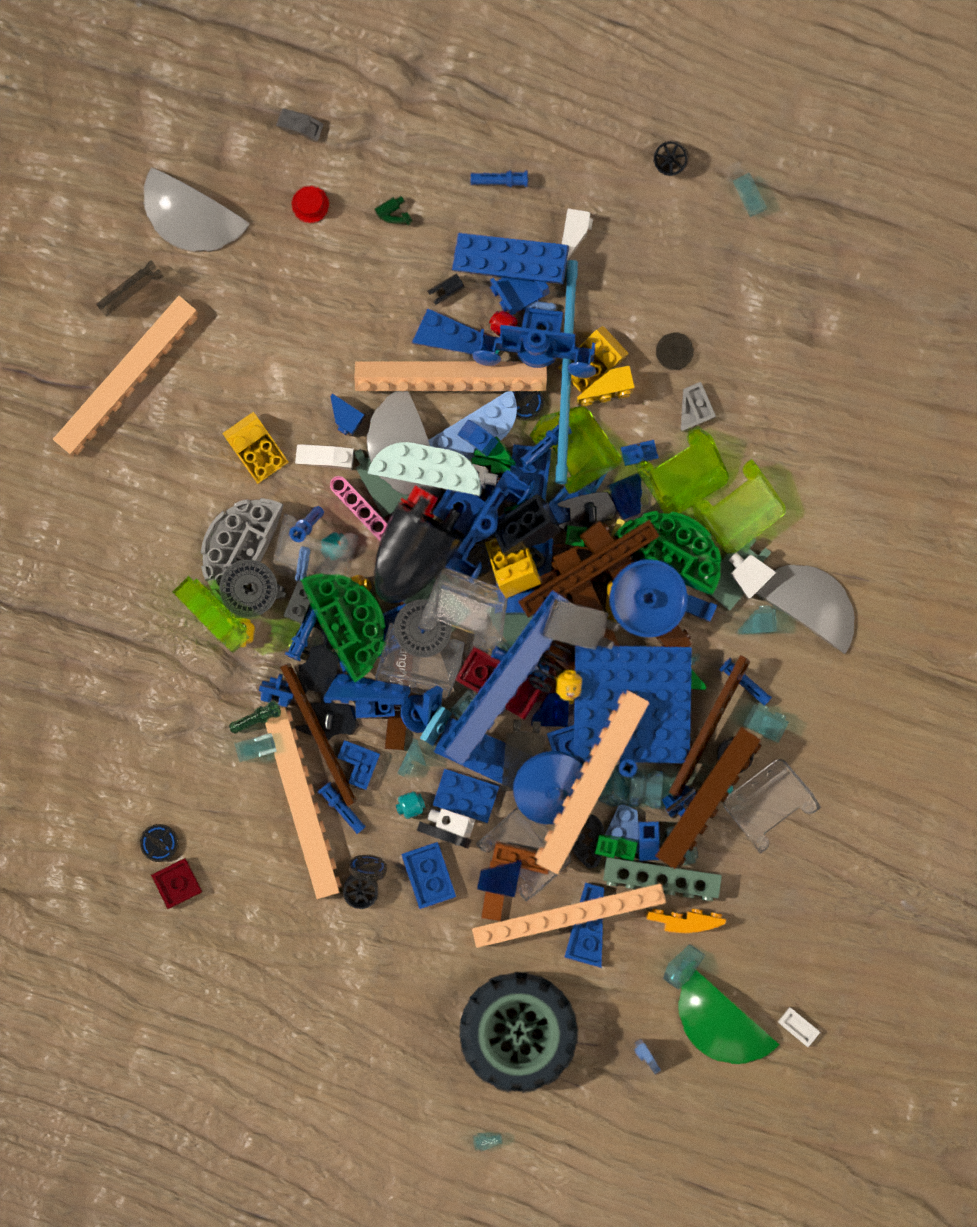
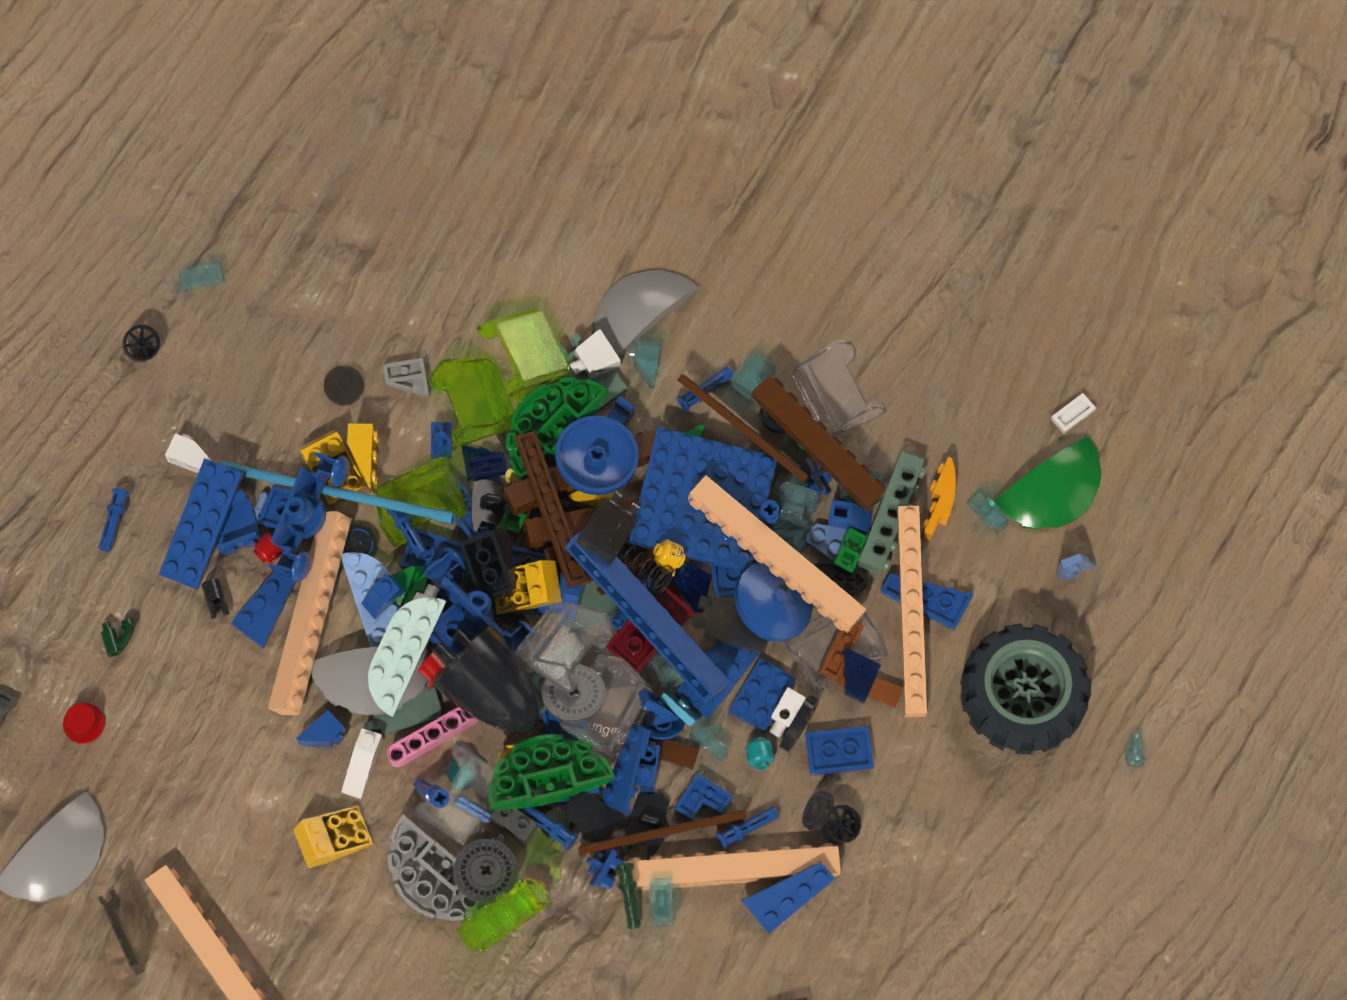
camera: 75 degrees left, 15 degrees down
(285, 857) = (778, 902): none -> blue wing

